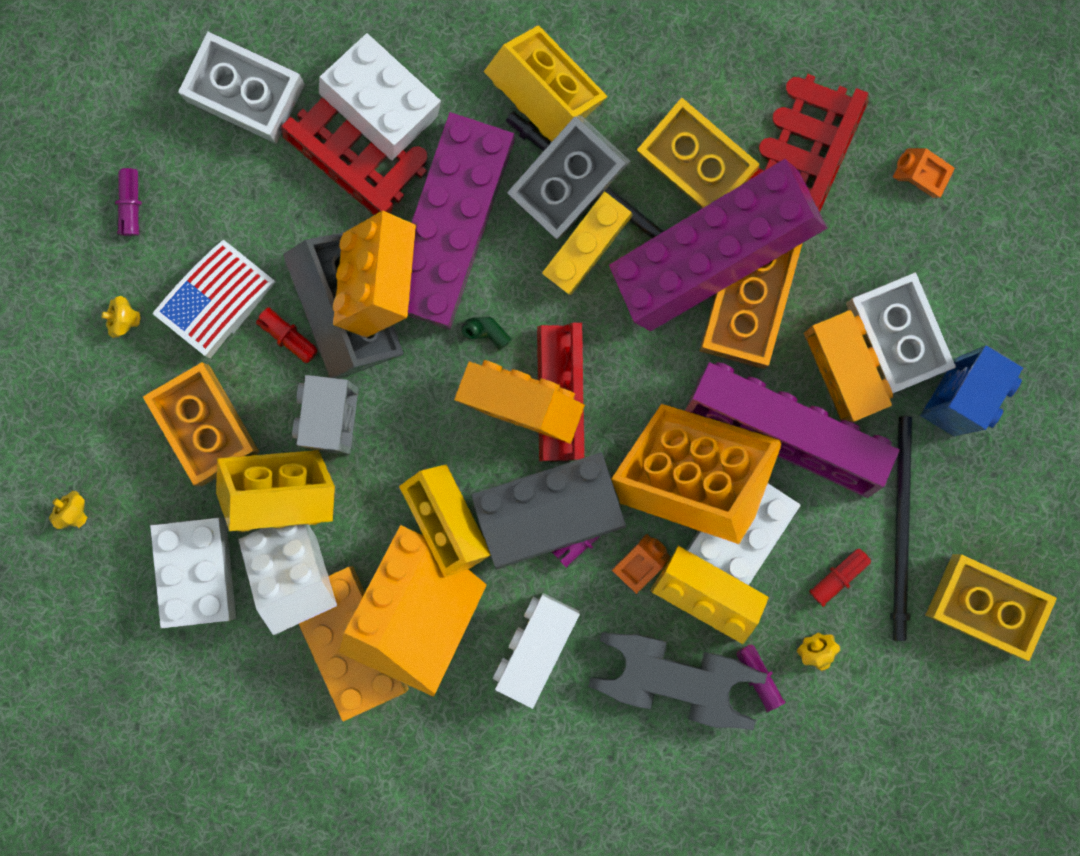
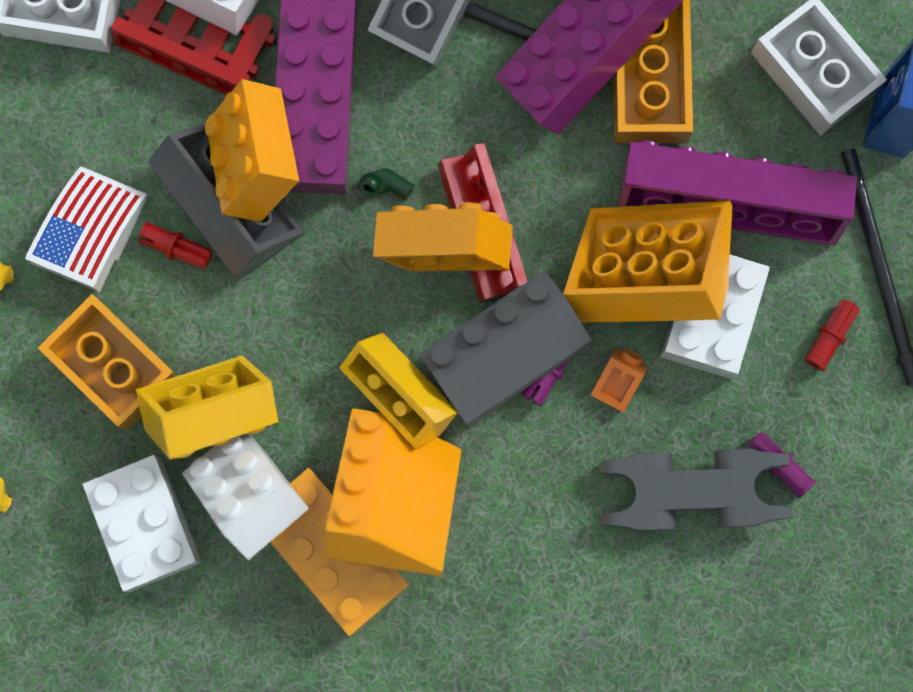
camera: 25 degrees left, 5 degrees down
(326, 414) = (240, 309): light grey brick -> none
(535, 649) = (535, 497): white brick -> none
(587, 243) = (466, 61): yellow brick -> none
(710, 595) = (703, 389): yellow slope -> none
(818, 651) = (834, 418): yellow piece -> none
(848, 367) = (774, 110): light orange brick -> none

